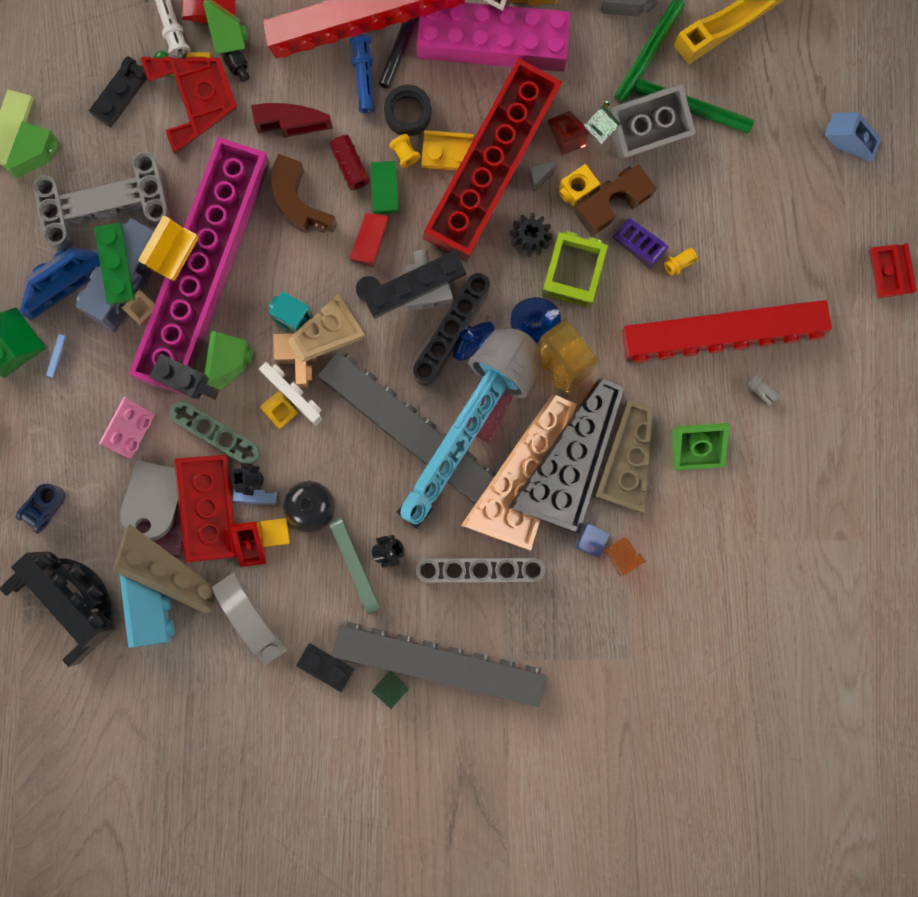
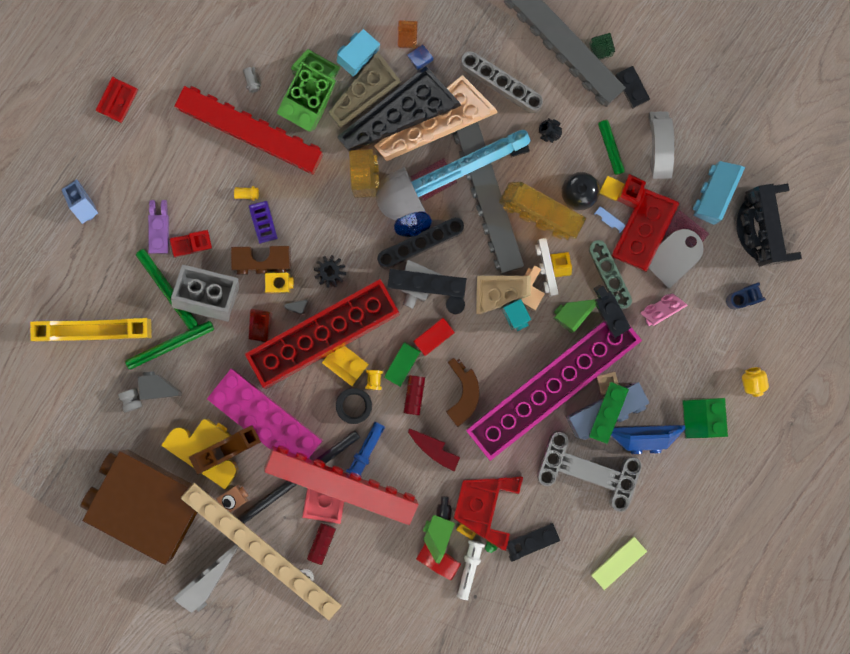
camera: 145 degrees left, 5 degrees up
(30, 149) = (612, 537): bright green slope -> none
(56, 356) = (679, 388): light blue piece -> none
(159, 570) = (697, 204): dark tan wing -> none
(168, 248) = (567, 403): yellow panel -> none
(247, 479) = (608, 230): black gear -> none
(305, 580) = (611, 147): none -> green axle
(335, 445) = (541, 210): none -> clear yellow brick
(354, 565) = (576, 135): sand green beam -> none
(535, 311) = (359, 222): clear blue dish -> none
(567, 293) = (321, 206): lime window -> none
(602, 123) = (239, 308): clear green panel -> none
(666, 496) = (357, 52): none -> medium azure brick
(687, 401) = (307, 97): none -> bright green slope
(703, 169) = (190, 244): none -> red slope
(748, 164) = (158, 229): none -> medium lavender hinge

